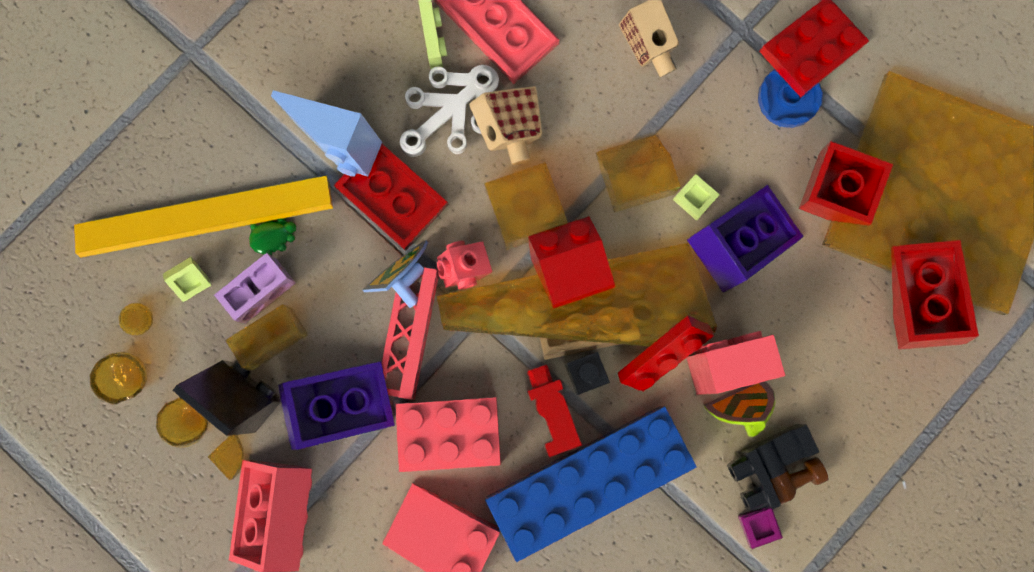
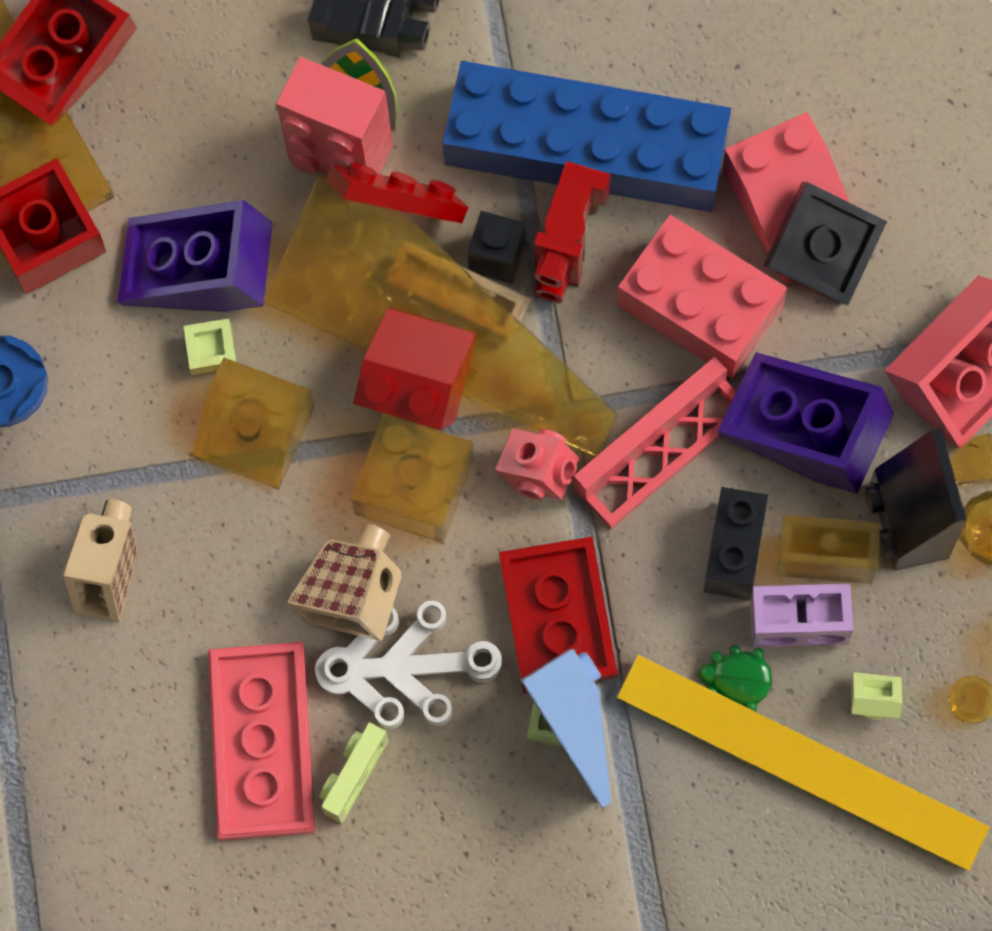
camera: 135 degrees left, 10 degrees down
(322, 304) = (735, 543): none -> black brick
(401, 275) = (621, 511): shield -> none
(401, 520) = (825, 243): none -> black plate

